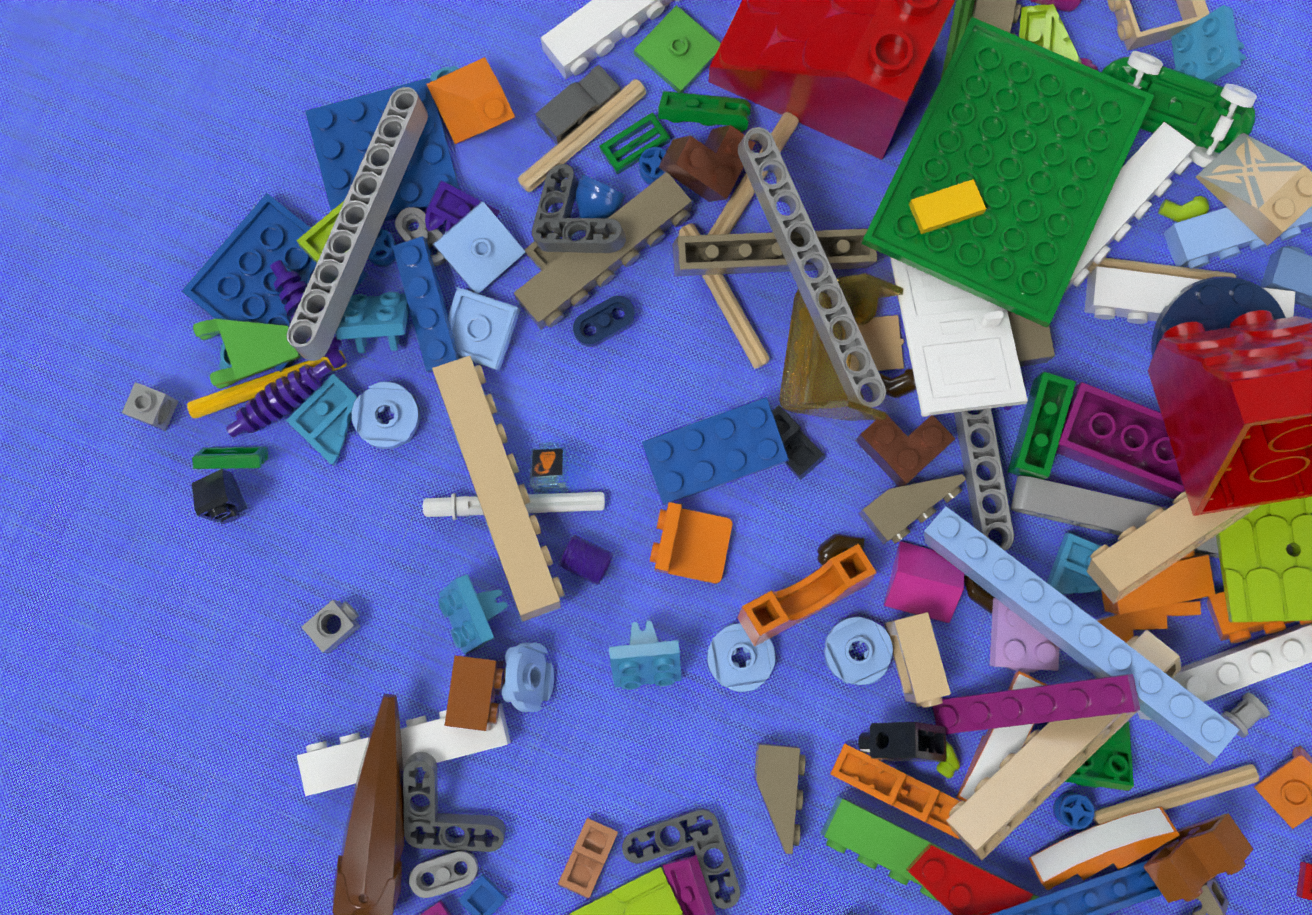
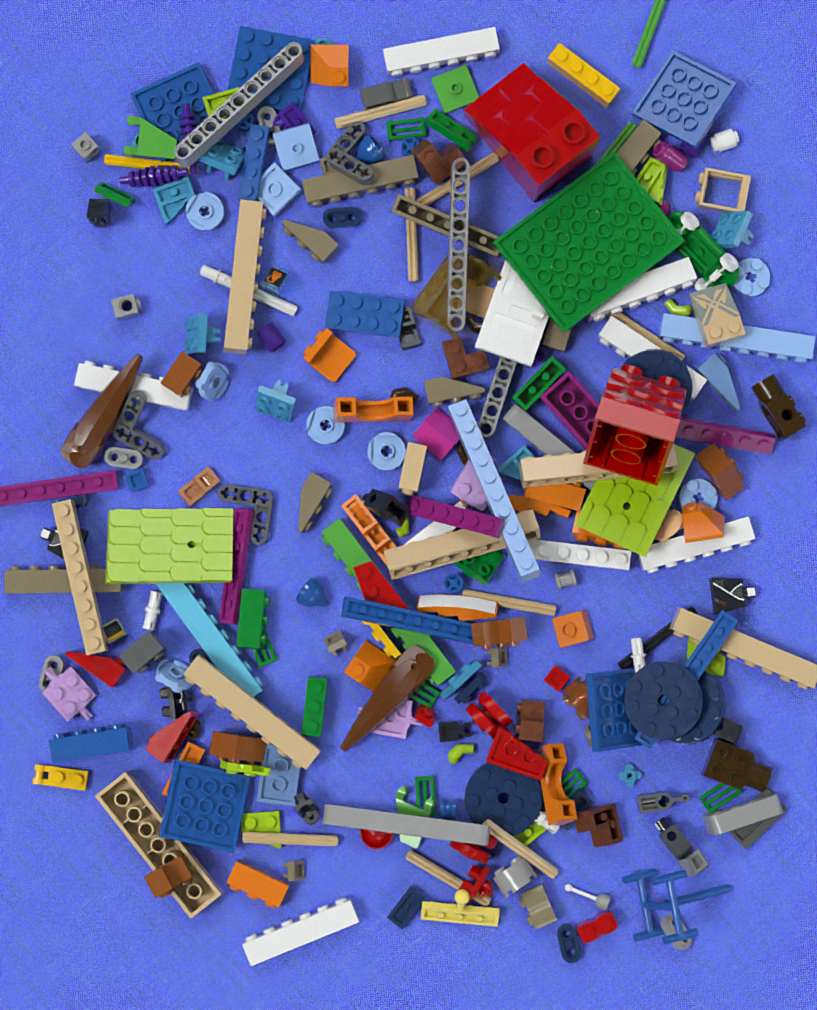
camera: 25 degrees right, 5 degrees up
(579, 376) = (315, 240): none -> dark tan slope
(947, 206) = (544, 246): yellow tile -> none
(1283, 106) = (762, 280): none -> light blue plate

